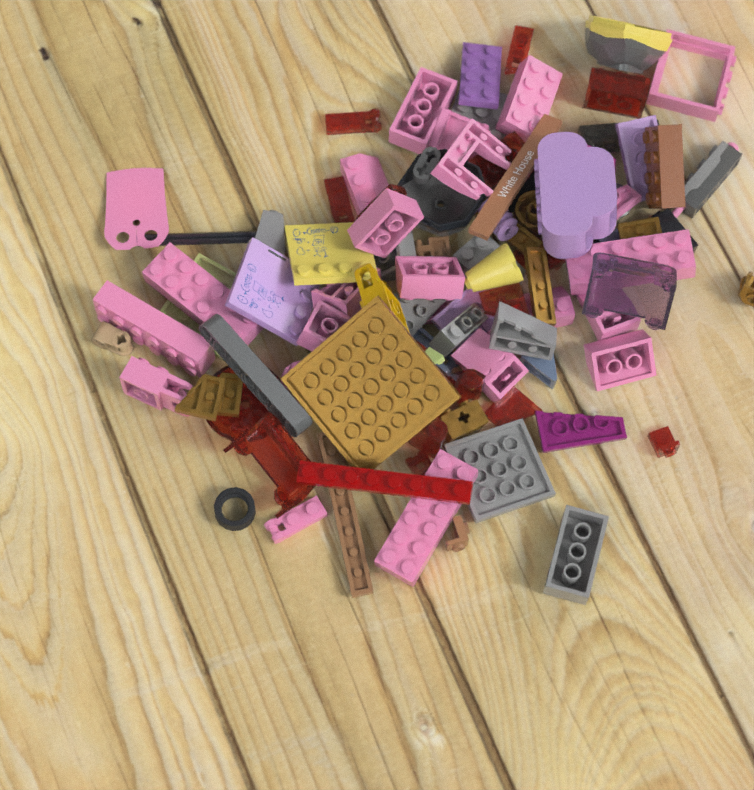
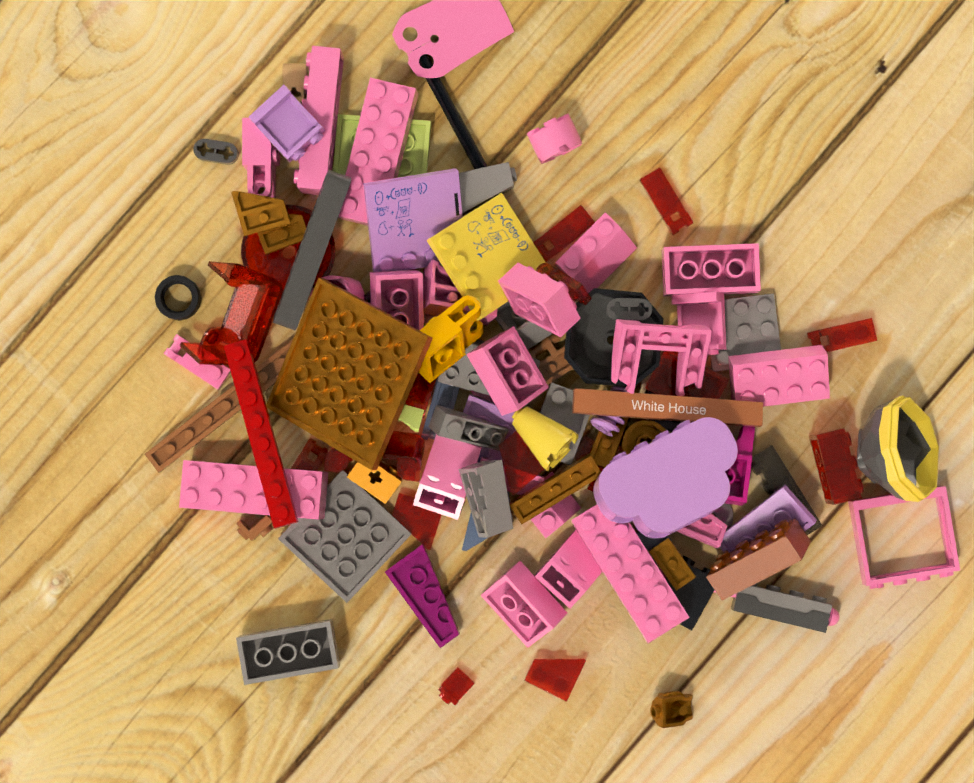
camera: 65 degrees right, 20 degrees up
(135, 427) = (216, 146): none -> dark grey beam
(146, 343) = (287, 124): none -> lavender panel
(264, 170) = (554, 139): none -> bright pink brick
(480, 75) = (787, 309): medium lavender plate -> none
(630, 289) = (593, 585): clear purple windscreen -> none
(689, 363) = (555, 675): none -> clear red wing

